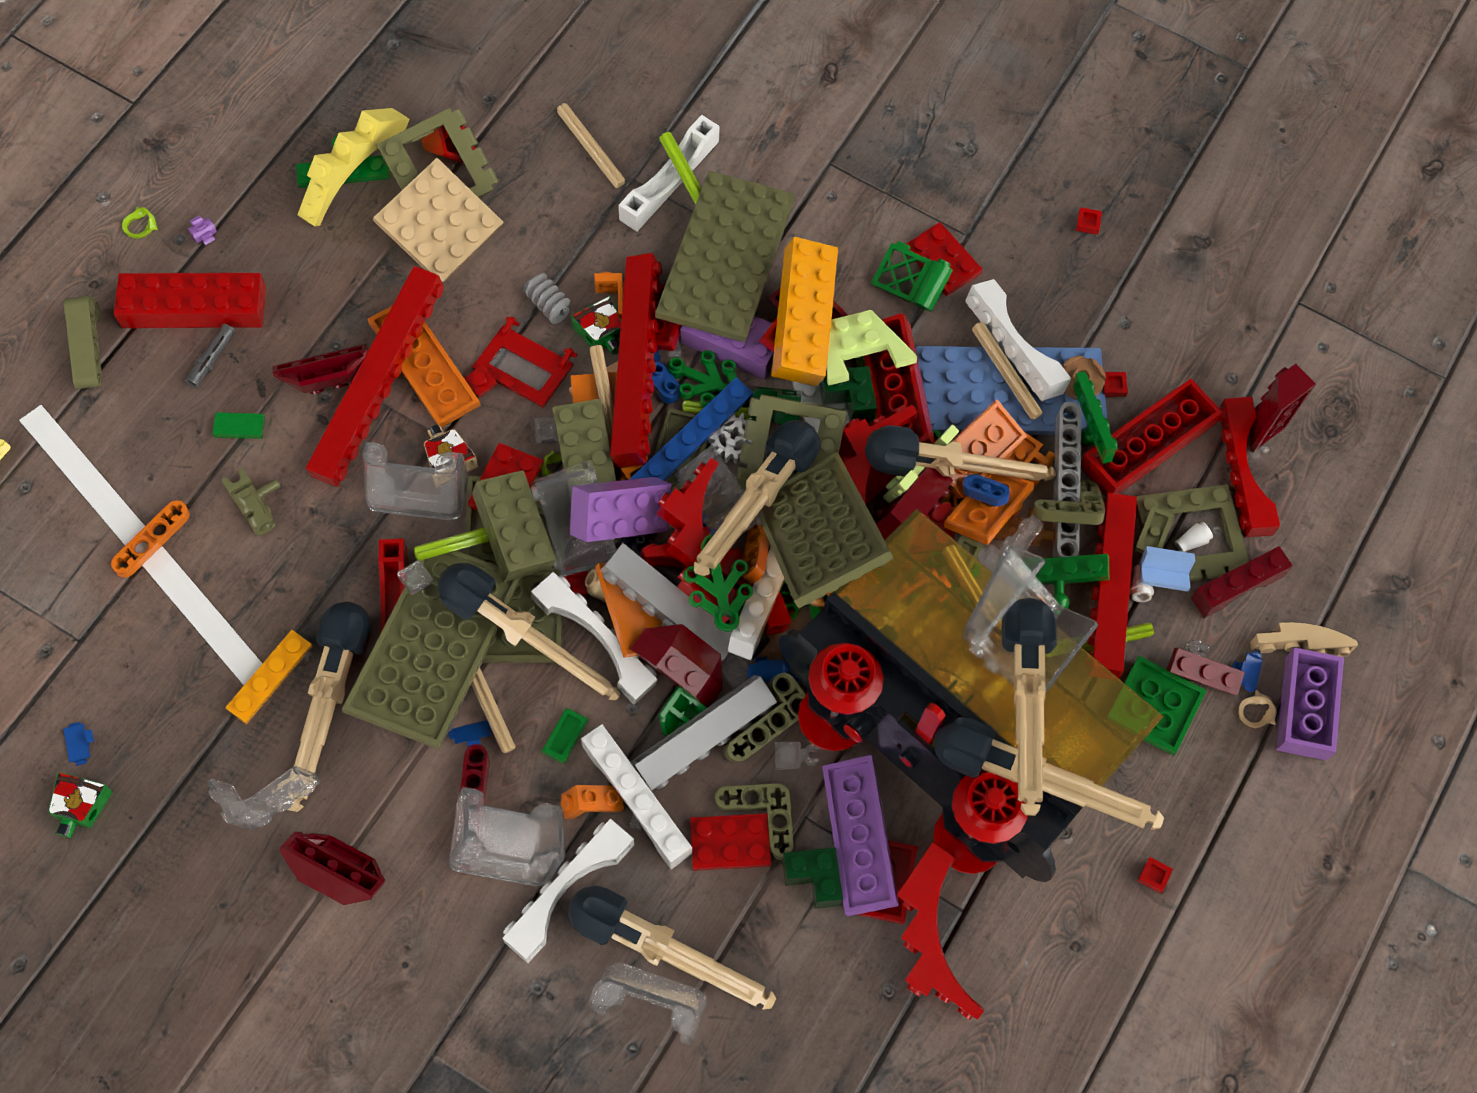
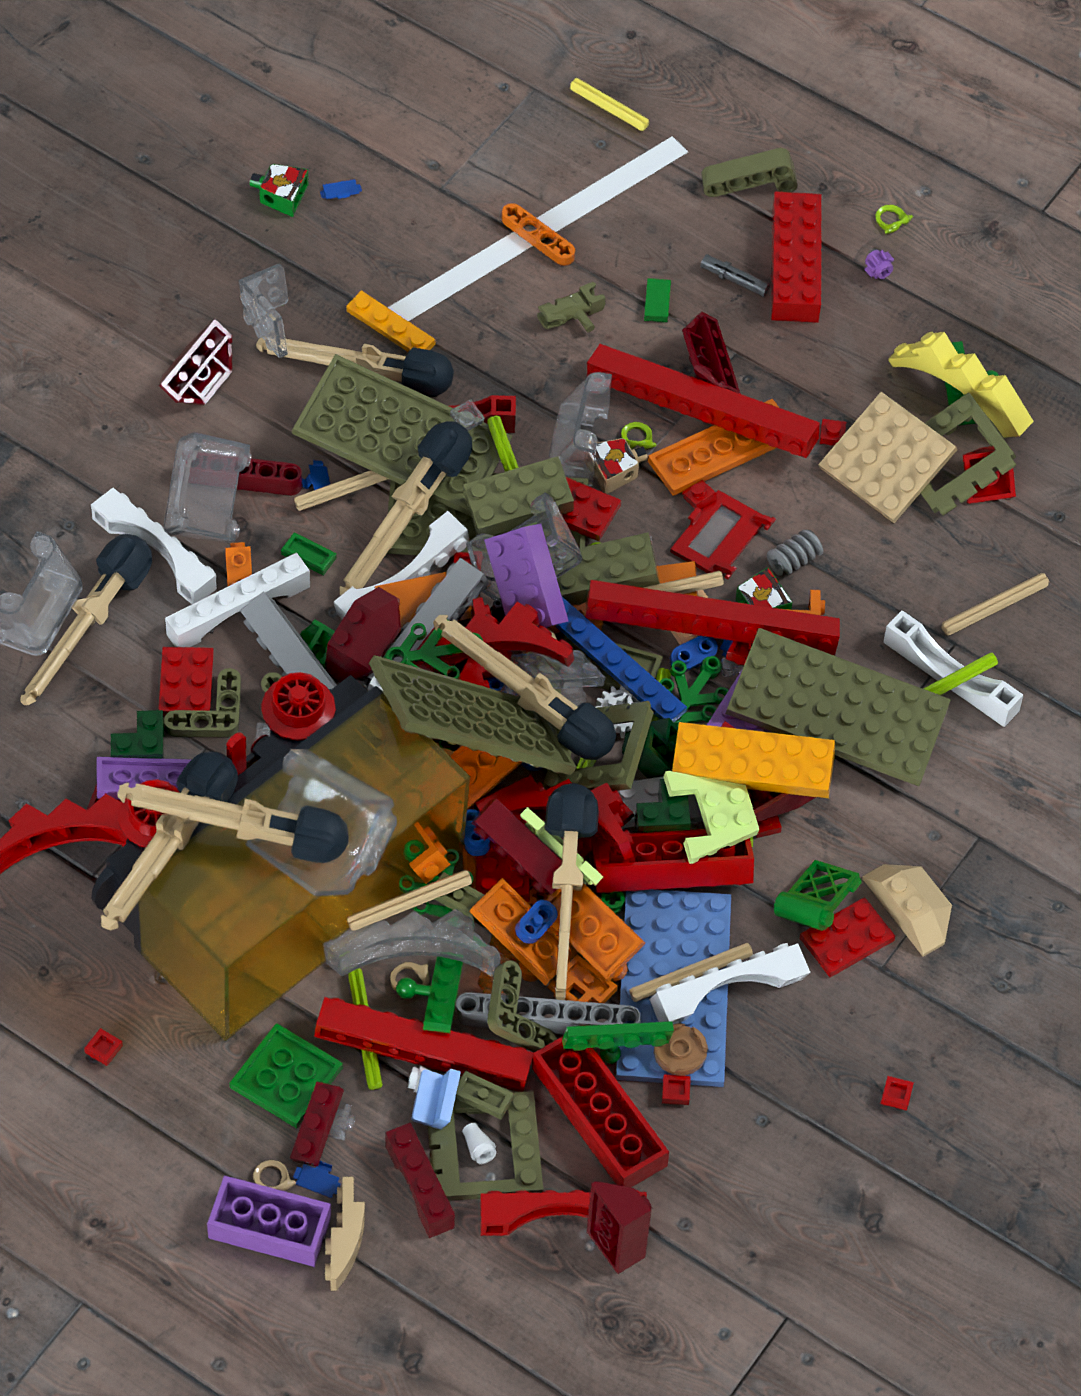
camera: 95 degrees right, 10 degrees down
(399, 271) = (831, 431): none -> red plate
(416, 430) = (647, 443): none -> lime piece
(903, 210) = (913, 903): none -> tan wedge

